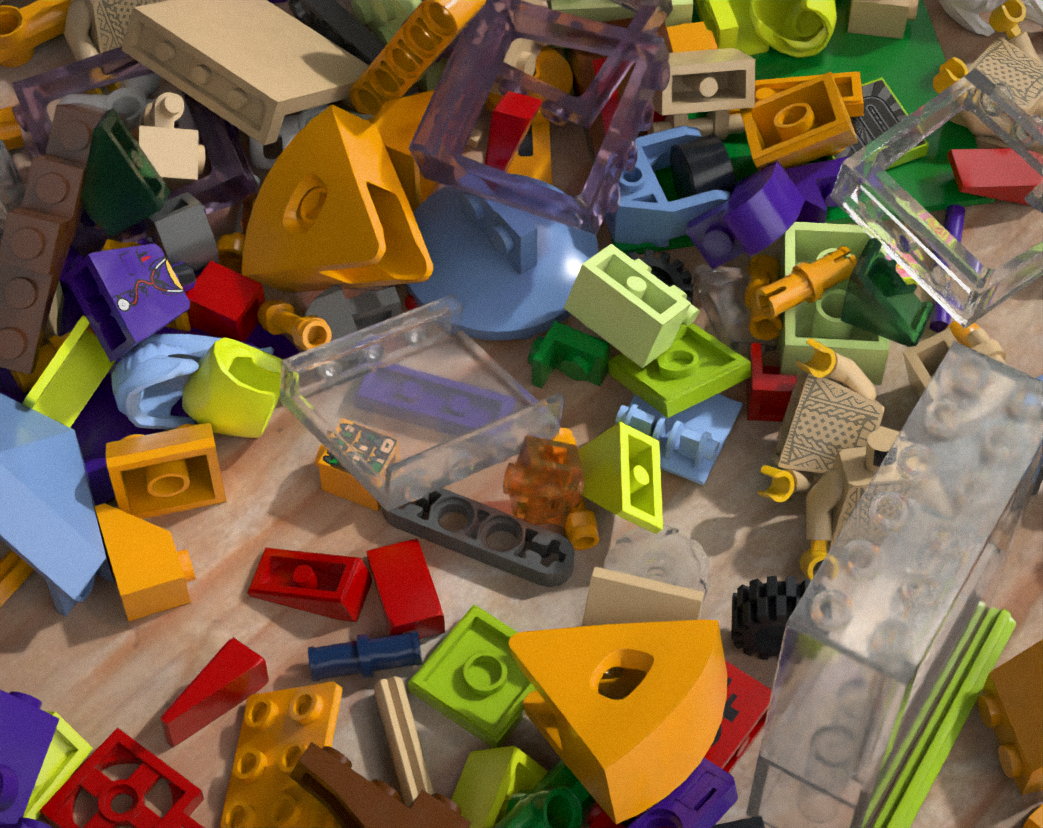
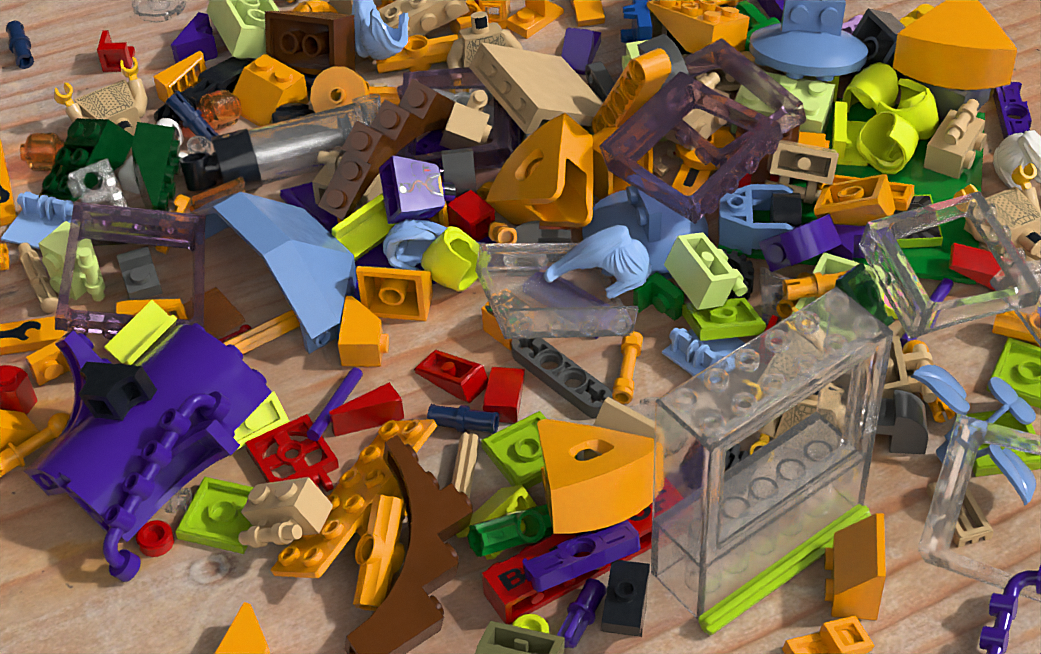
camera: 25 degrees right, 10 degrees down
(119, 178) = (431, 124): clear green slope -> none
(154, 696) = (335, 401): none -> dark purple bar
(479, 313) = (614, 253): none -> light blue hair
(509, 127) = (671, 157): red slope -> none
(544, 481) = (607, 353): clear orange brick -> none
(624, 475) = (659, 362): neon yellow slope -> none

